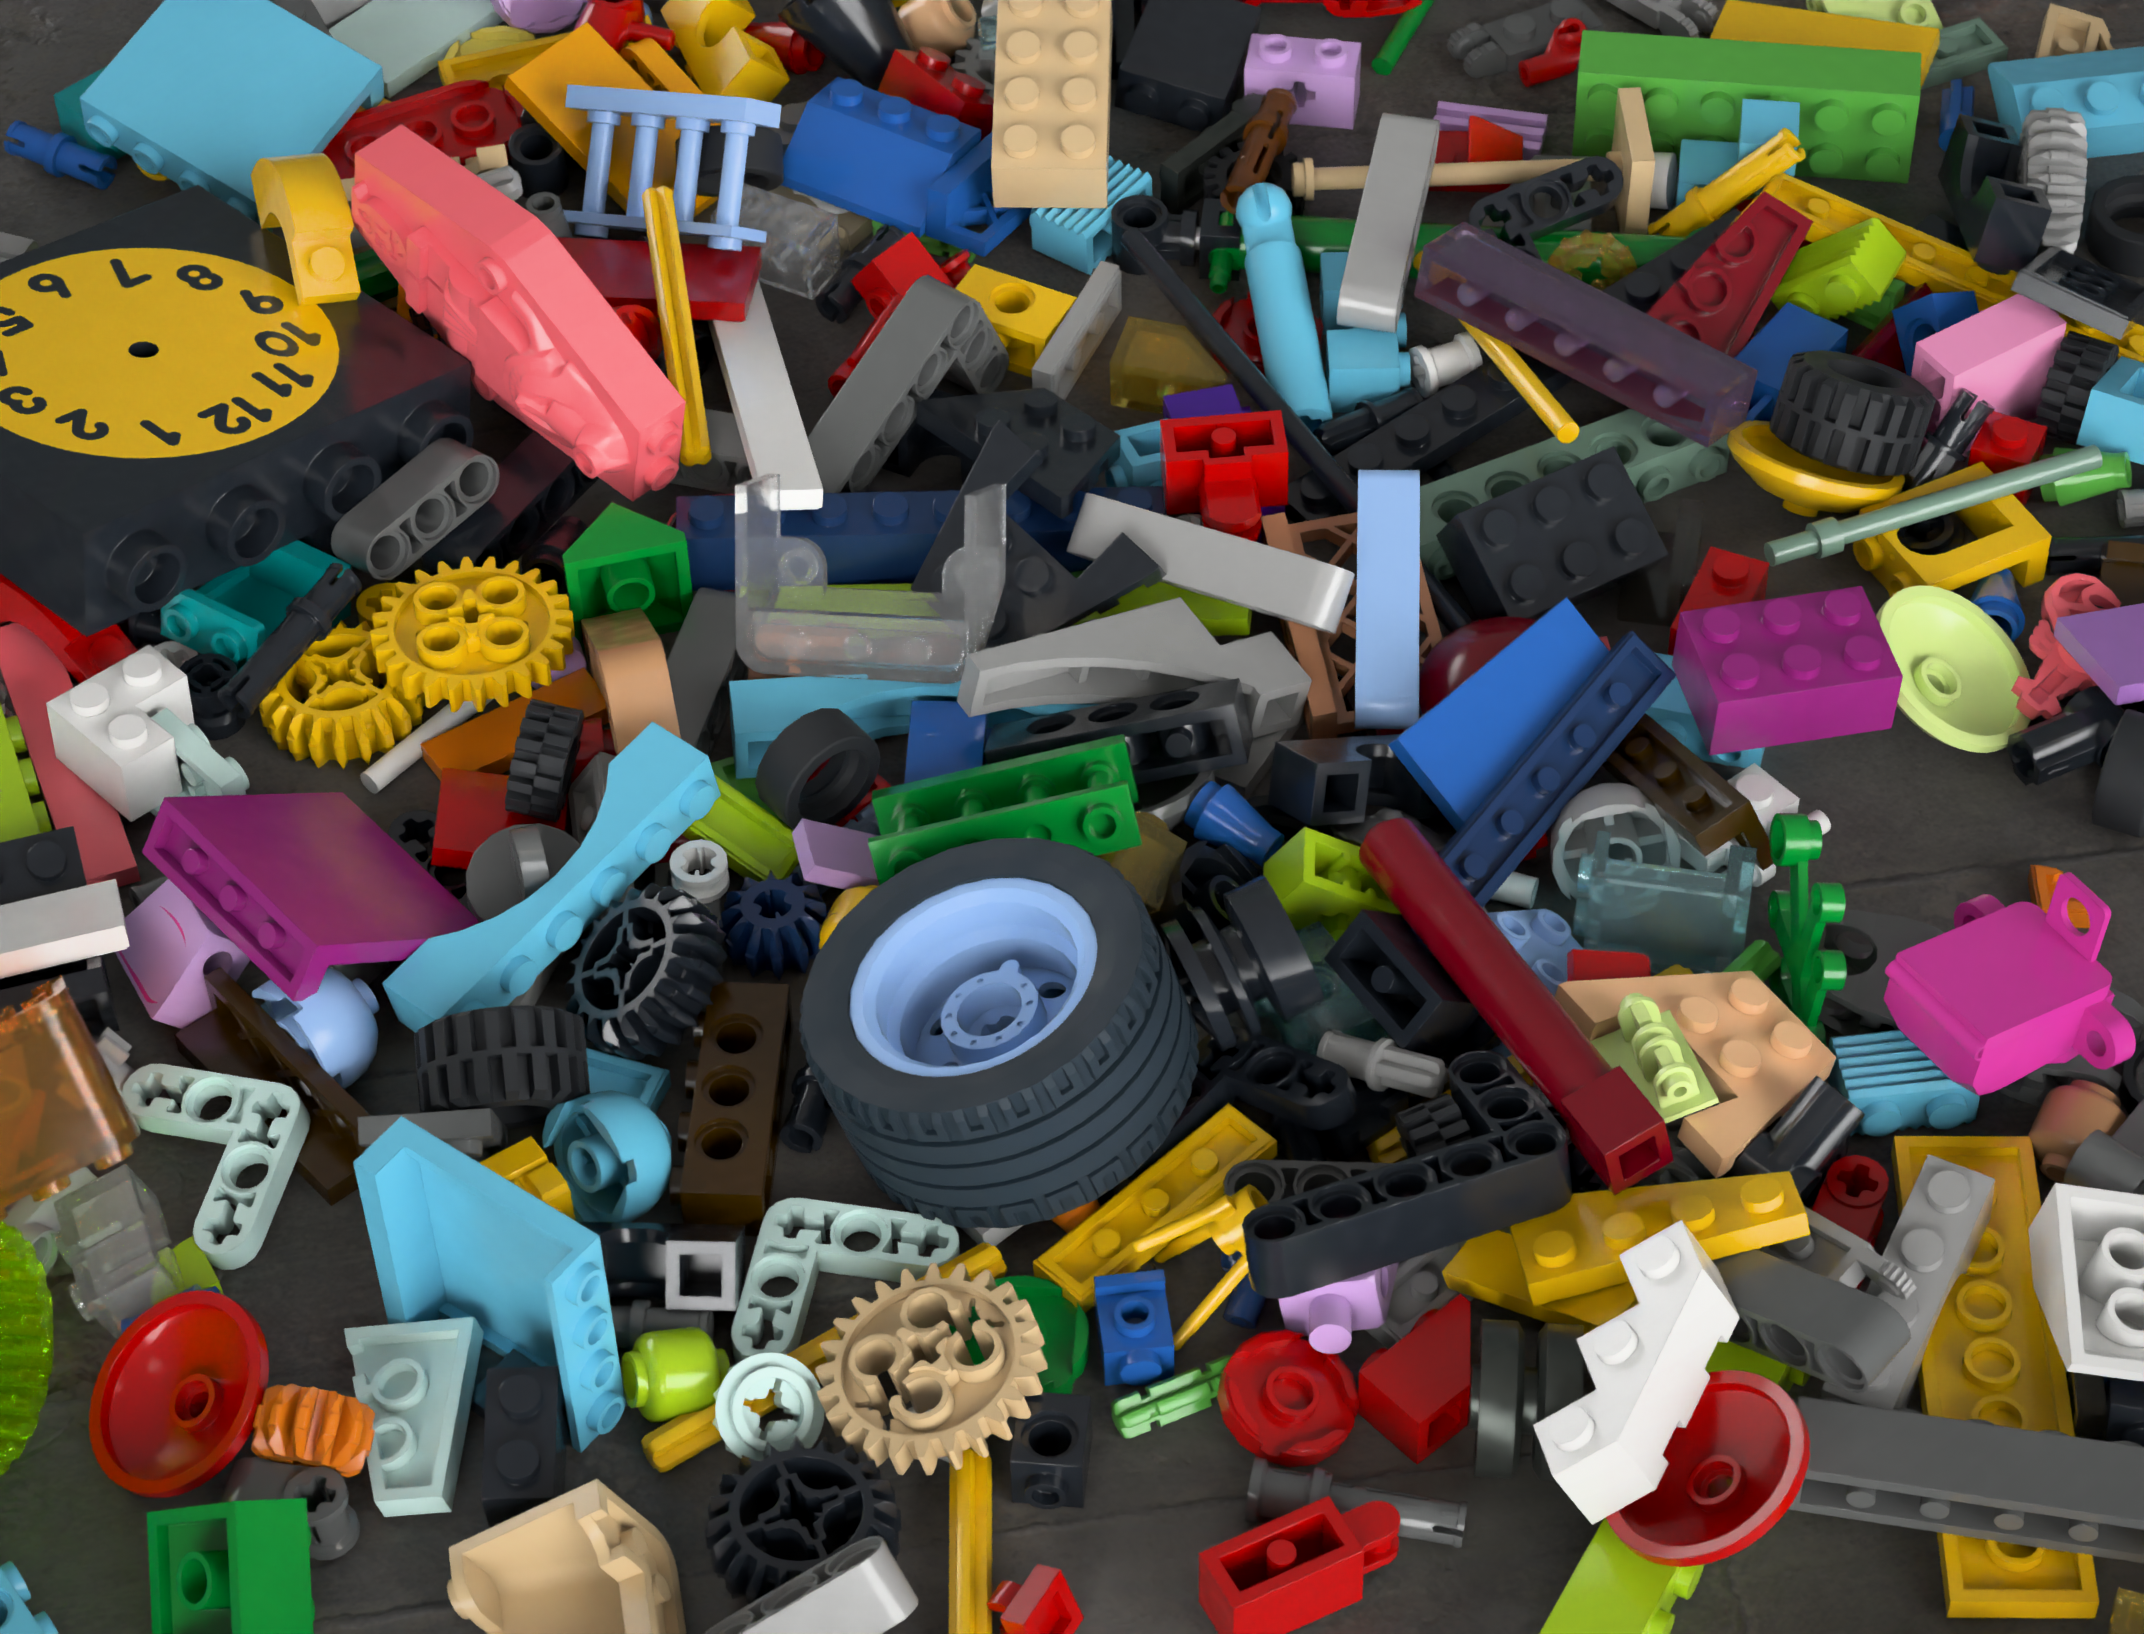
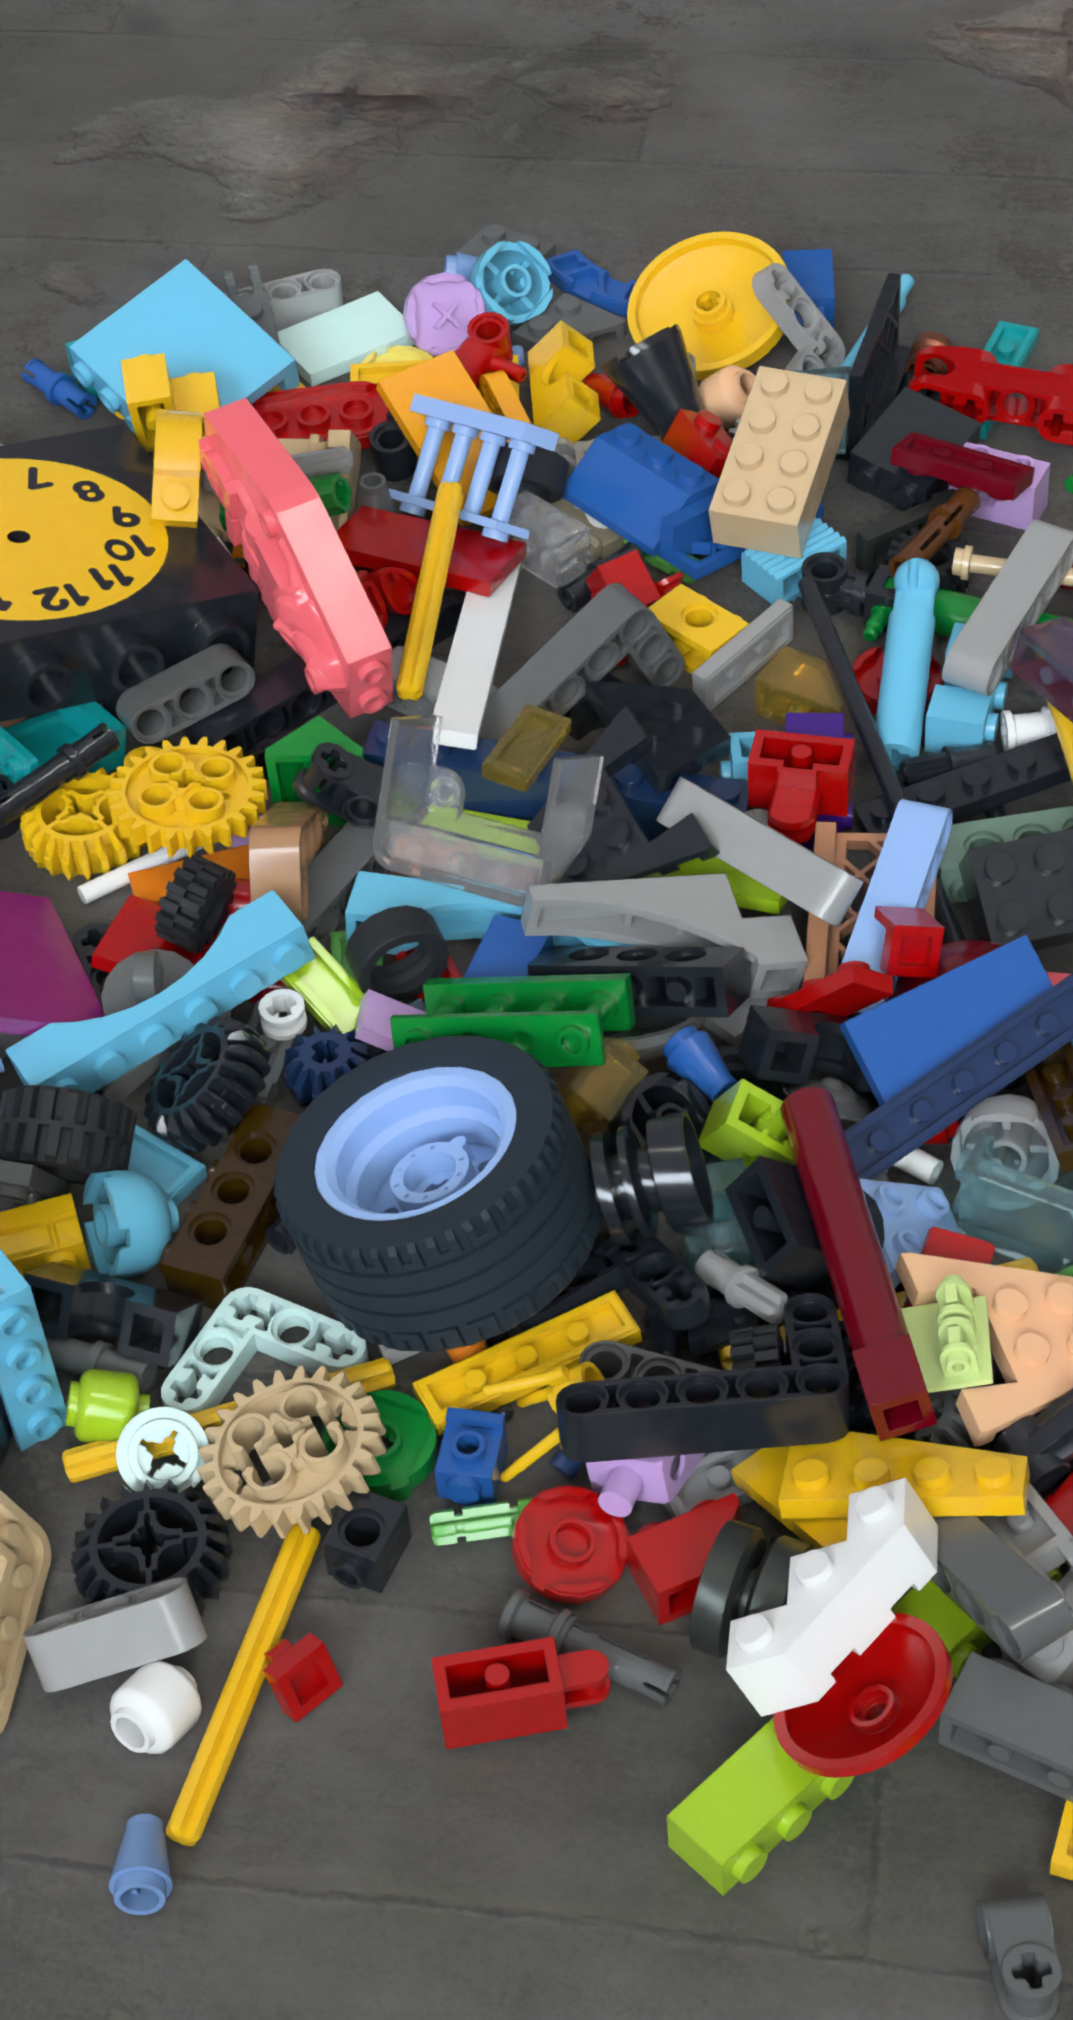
camera: 20 degrees right, 0 degrees up
(230, 141) = (151, 388): none -> yellow brick
(678, 583) = (347, 785): none -> black piece
(881, 494) = (526, 748): none -> clear yellow tile
(1264, 64) = (962, 466): none -> dark red plate
(1369, 711) = (839, 993): none -> red tile
(1435, 632) = (910, 941): none -> red panel

